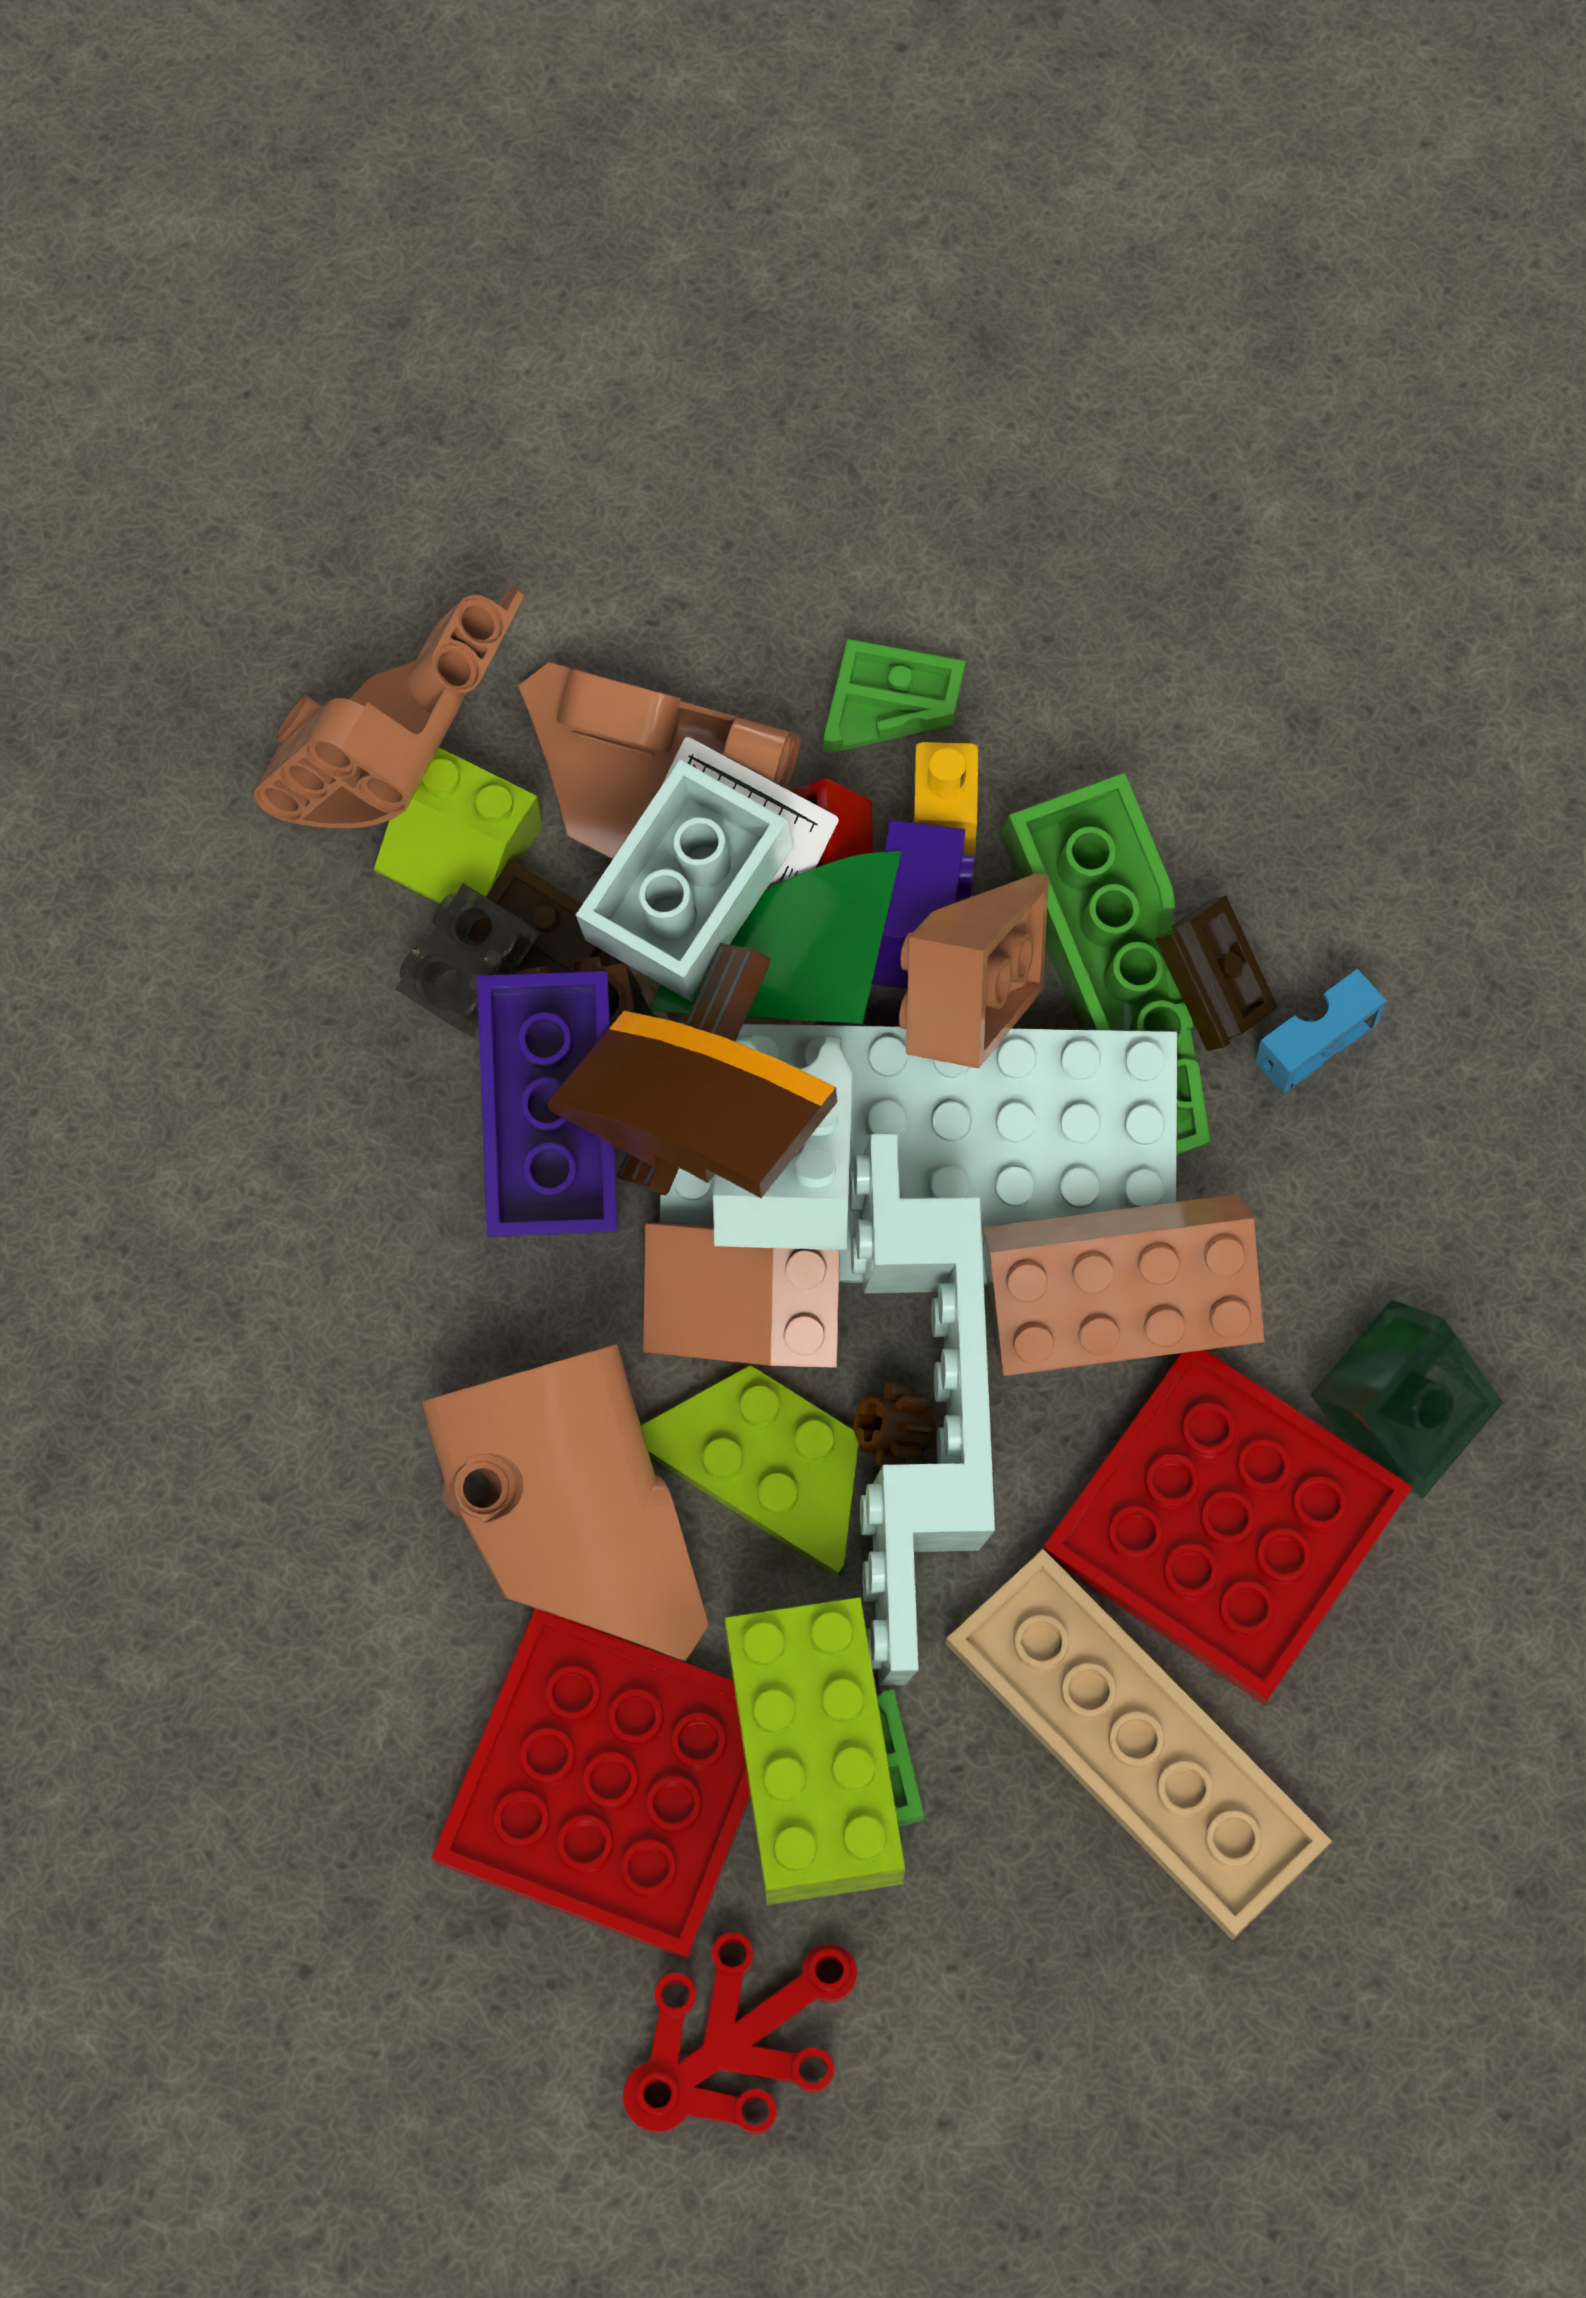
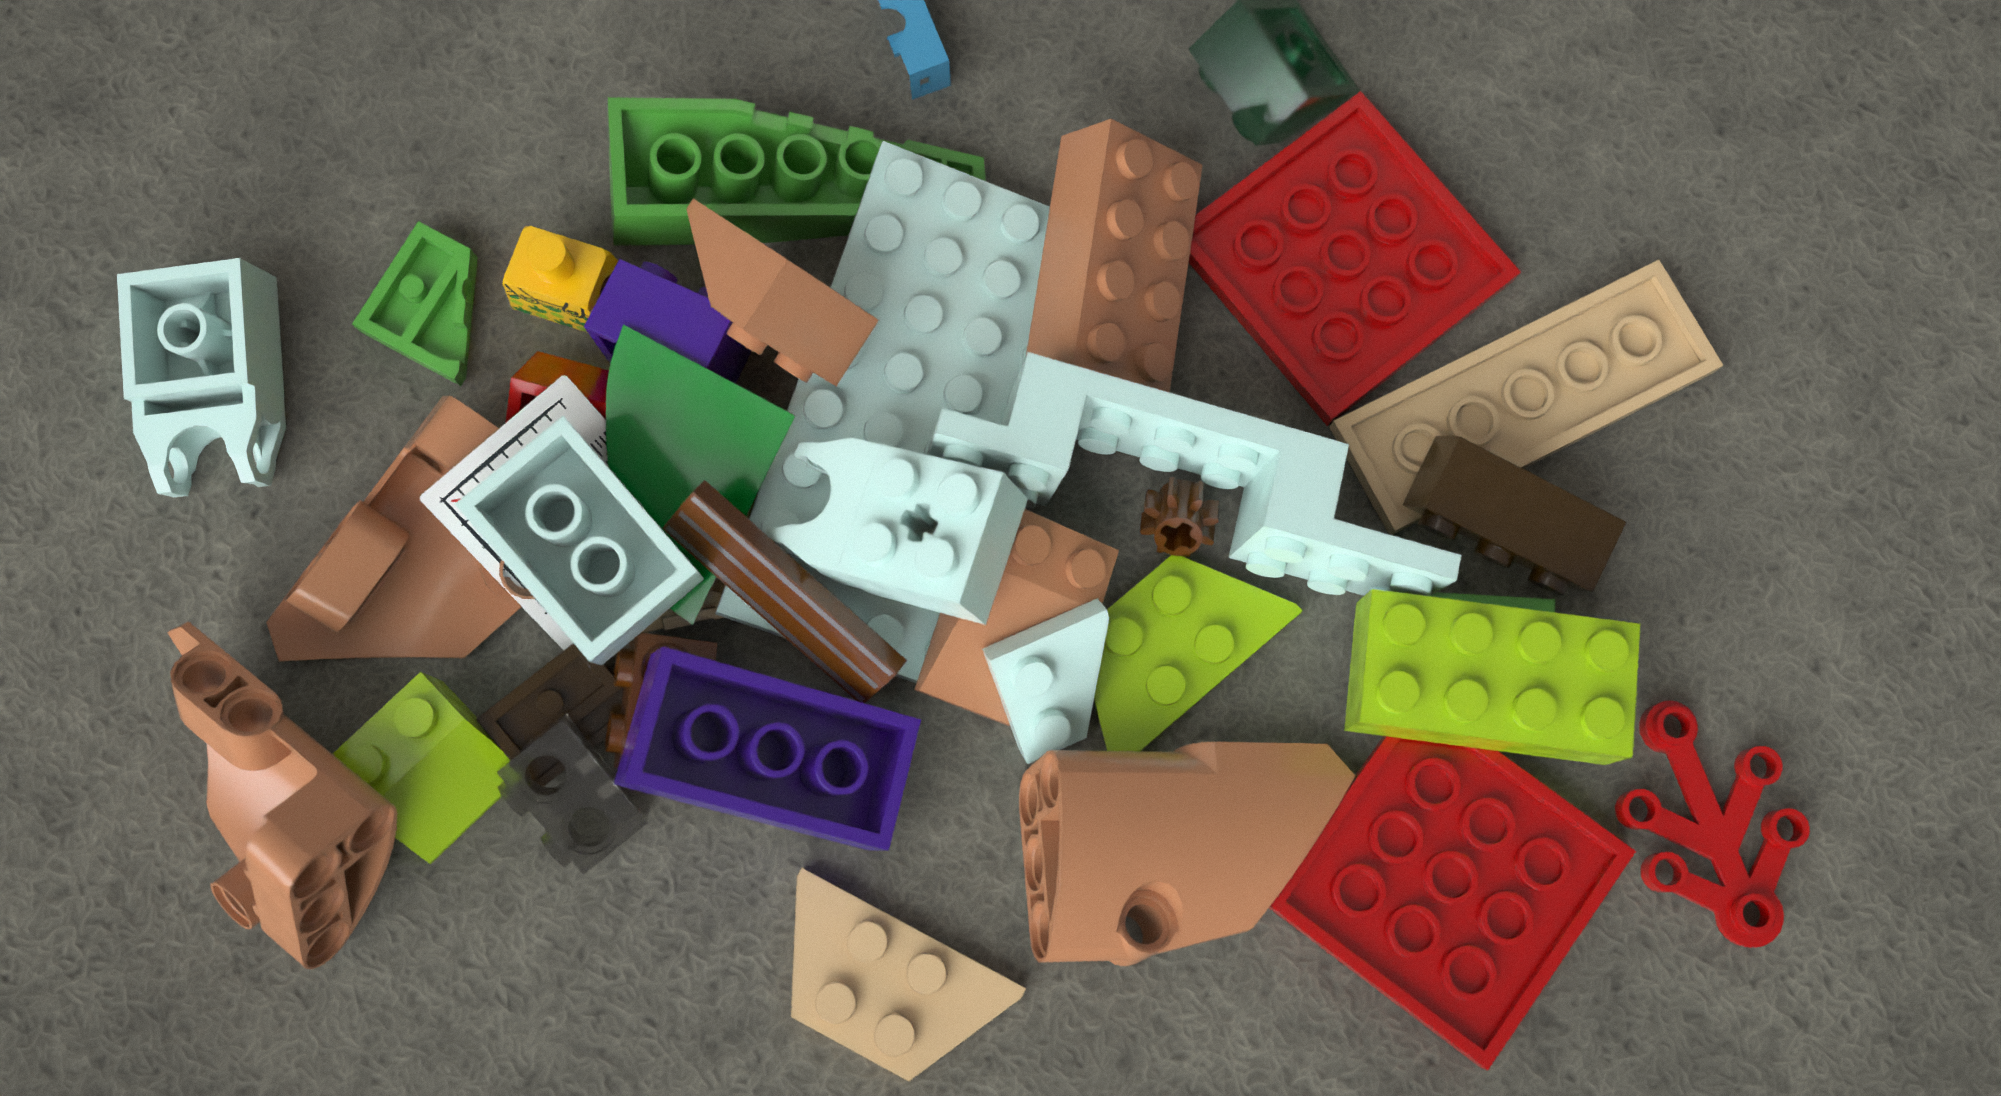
camera: 75 degrees left, 10 degrees up
(371, 1286) = (885, 982): none -> tan wing
(692, 1340) = (1050, 678): none -> light aqua wing
(694, 1101) = (848, 595): reddish brown slope -> none
(762, 534) = (203, 367): none -> light aqua brick
(992, 1742) = (1513, 515): none -> dark brown brick
(1216, 973) = (827, 93): dark brown plate -> none

